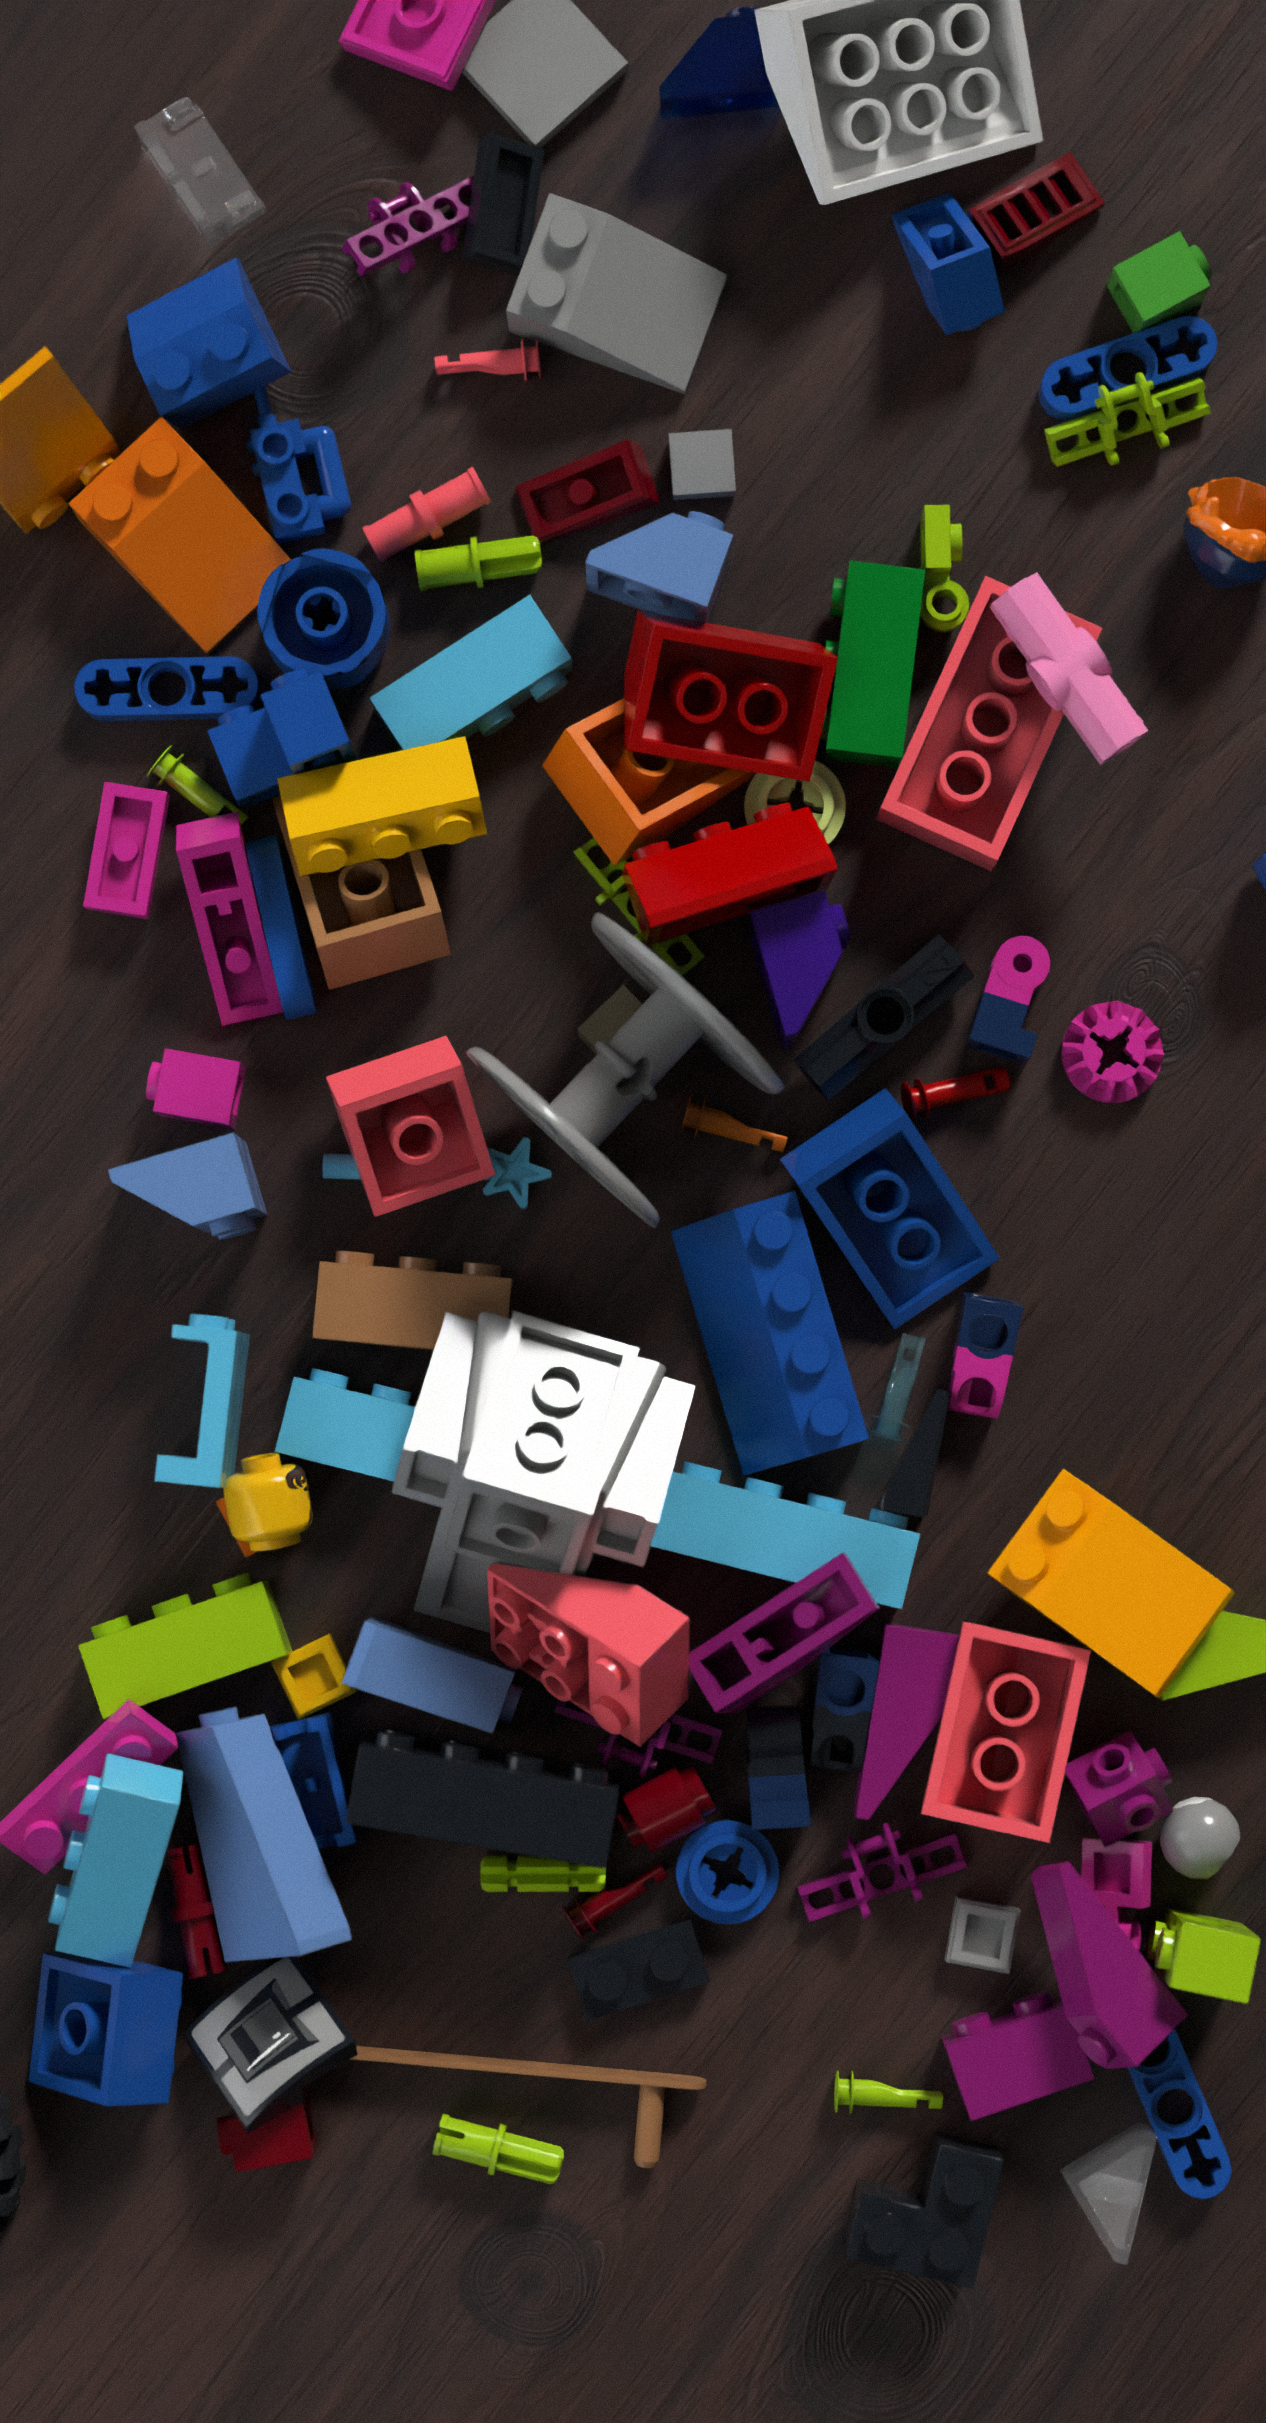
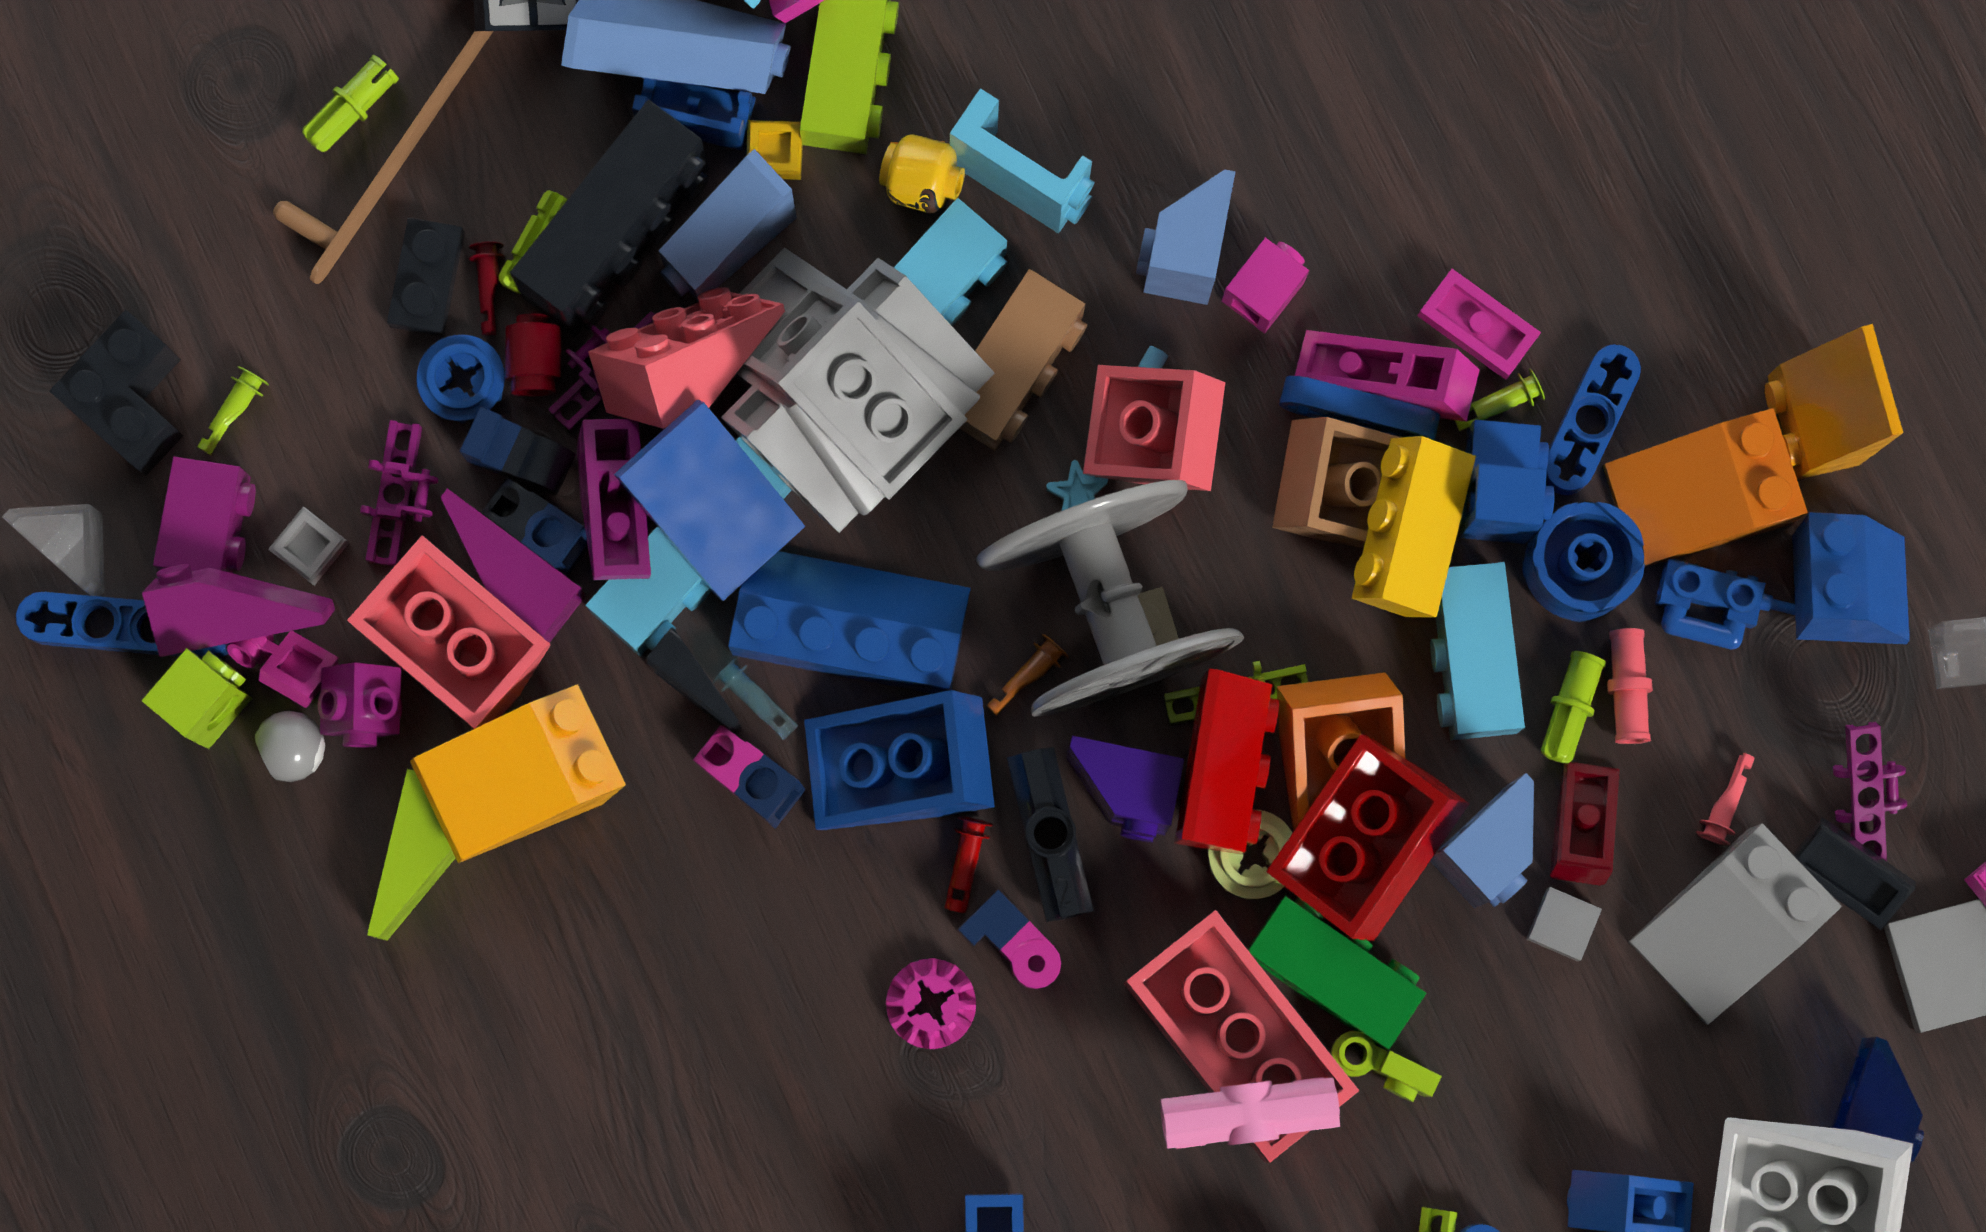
camera: 110 degrees right, 5 degrees down
(732, 1534) = (709, 500): none -> blue tile

